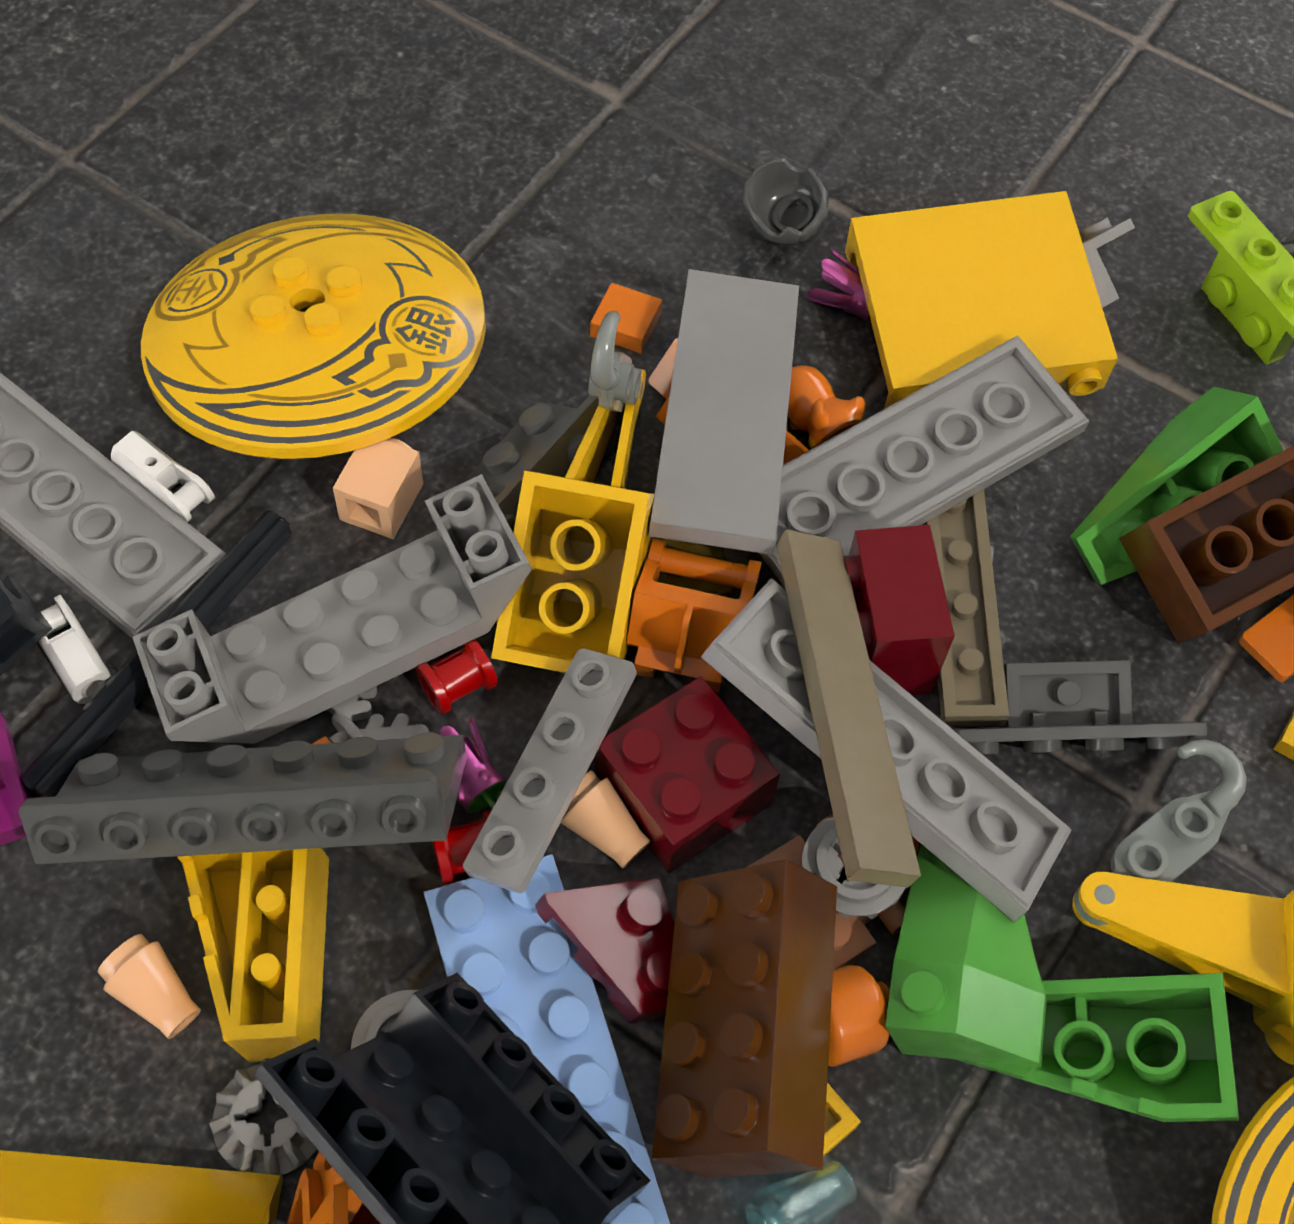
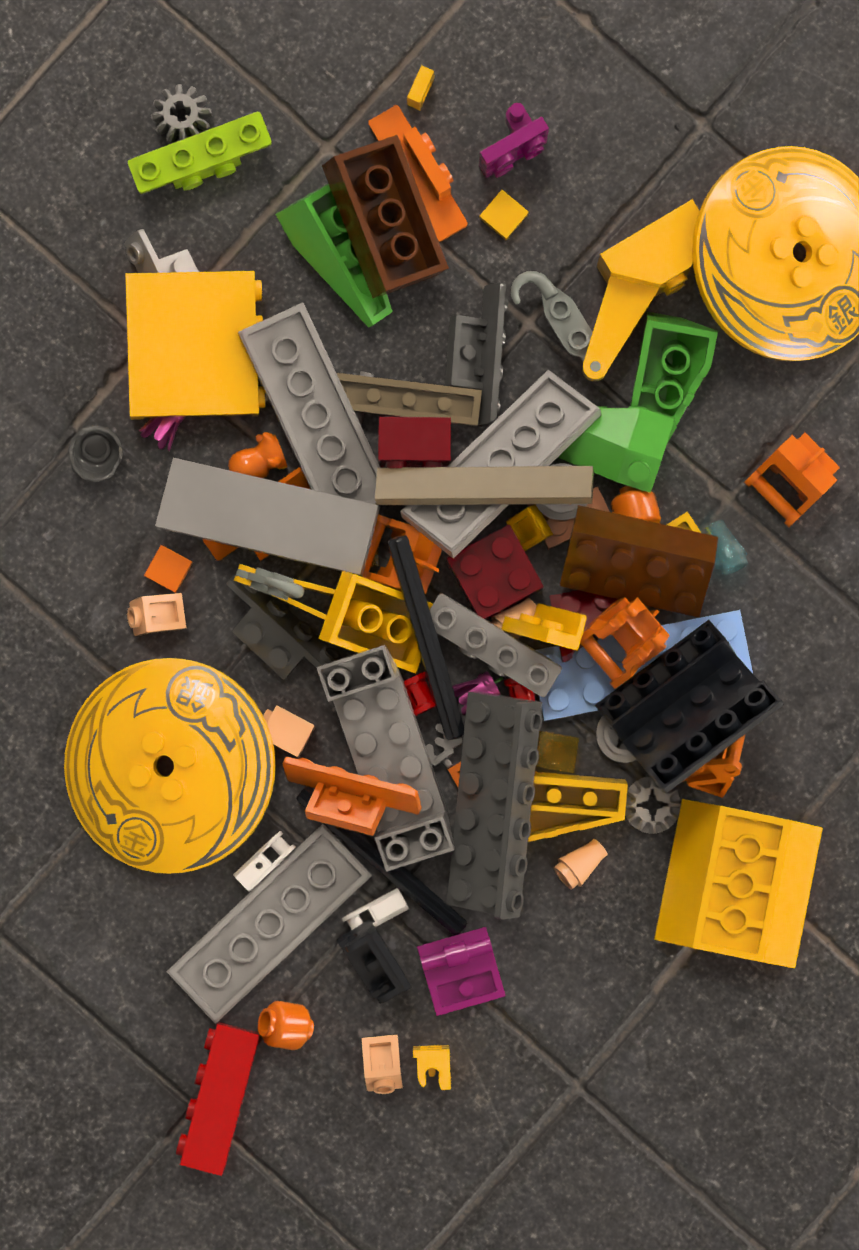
camera: 80 degrees left, 25 degrees up
(256, 565) = (349, 798): none -> orange bracket
(365, 907) = (557, 752): none -> clear yellow bracket
(554, 301) = (156, 614): none -> light nougat bracket
(559, 647) = (426, 637): none -> black axle
(586, 868) = (549, 625): none -> yellow bracket
(605, 1018) = (633, 629): none -> orange piece
(777, 827) = (530, 527): none -> yellow tile

